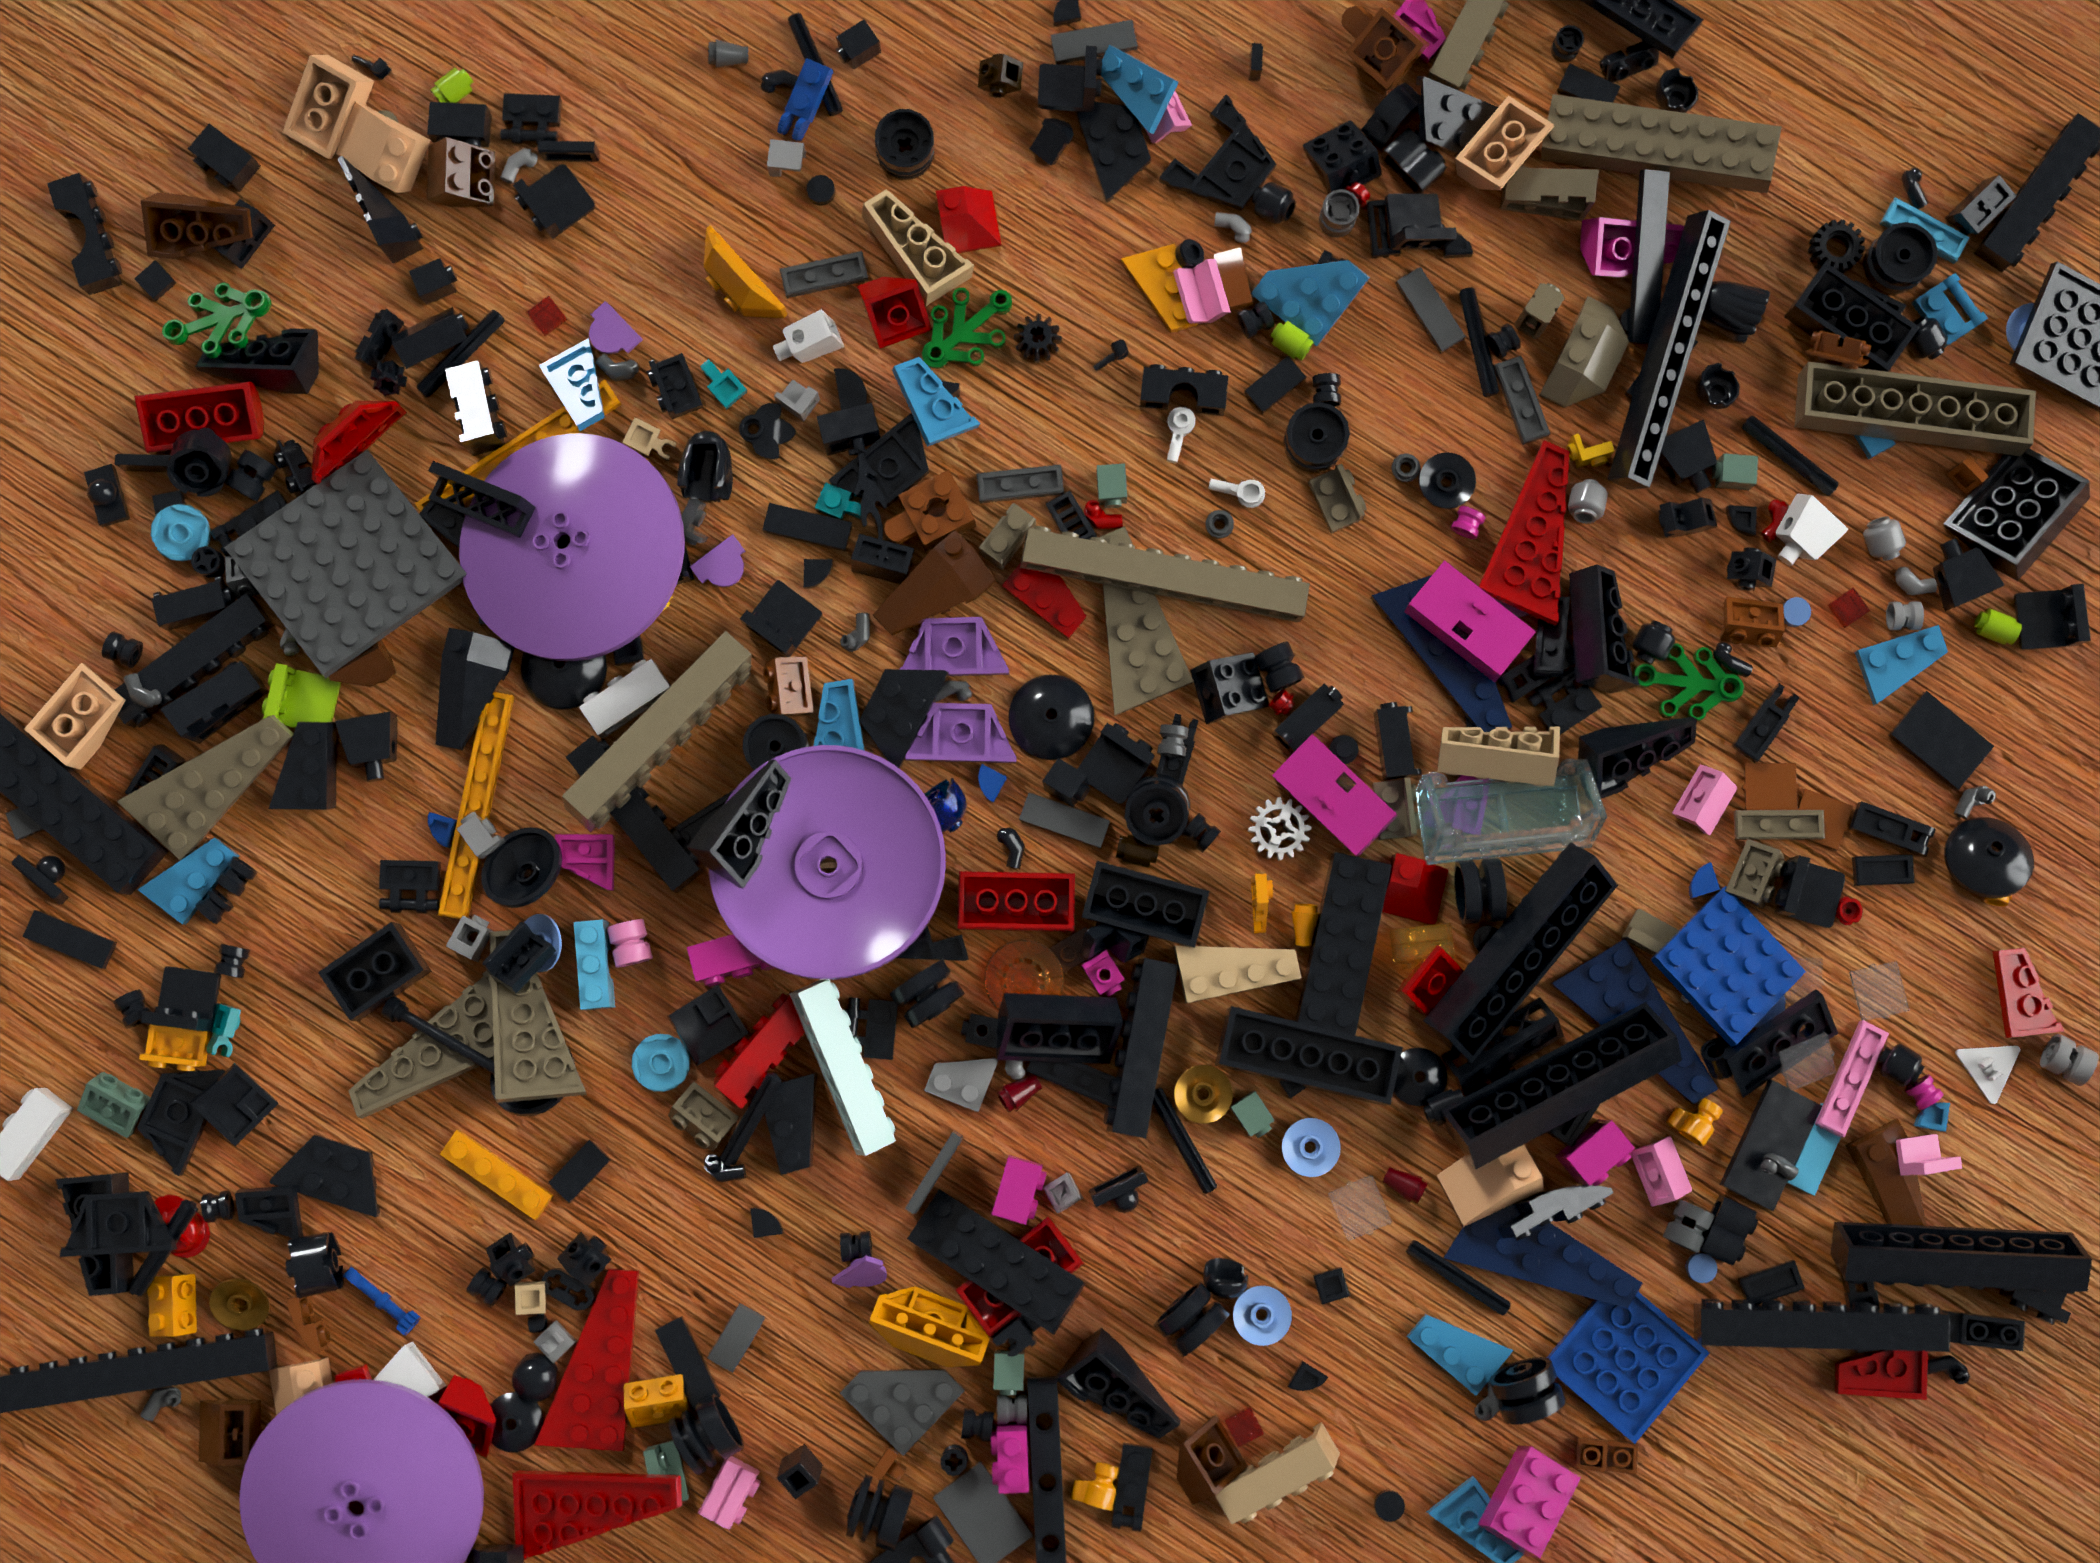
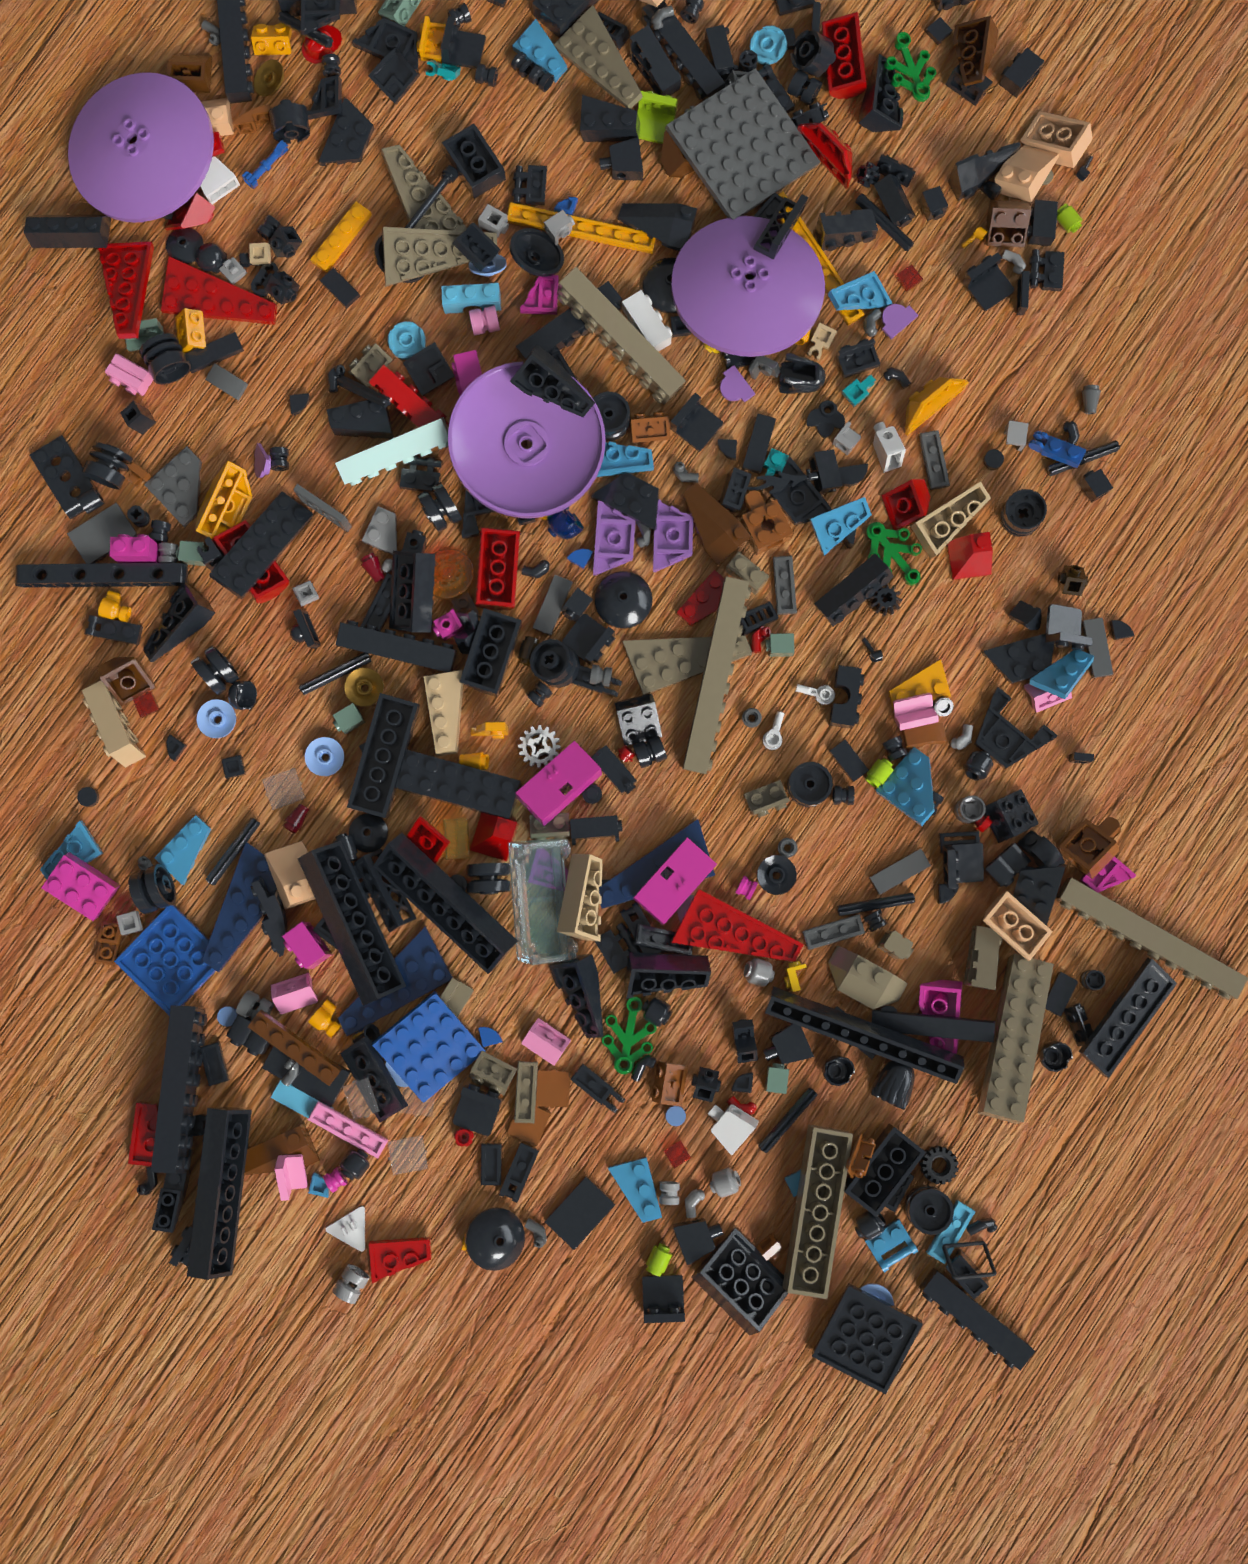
camera: 95 degrees right, 0 degrees up
(408, 199) = (991, 190): none -> black tile
(476, 215) = (979, 233): none -> light orange hand
(697, 327) = (897, 374): none -> black arm
(1018, 1190) = (307, 561): dark pink brick -> none
(1029, 380) = (854, 590): none -> black brick
(1577, 1424) = (129, 923): none -> light grey tile
(1744, 1160) = (295, 1047): none -> reddish brown plate
(1947, 235) = (969, 1276): none -> black piece

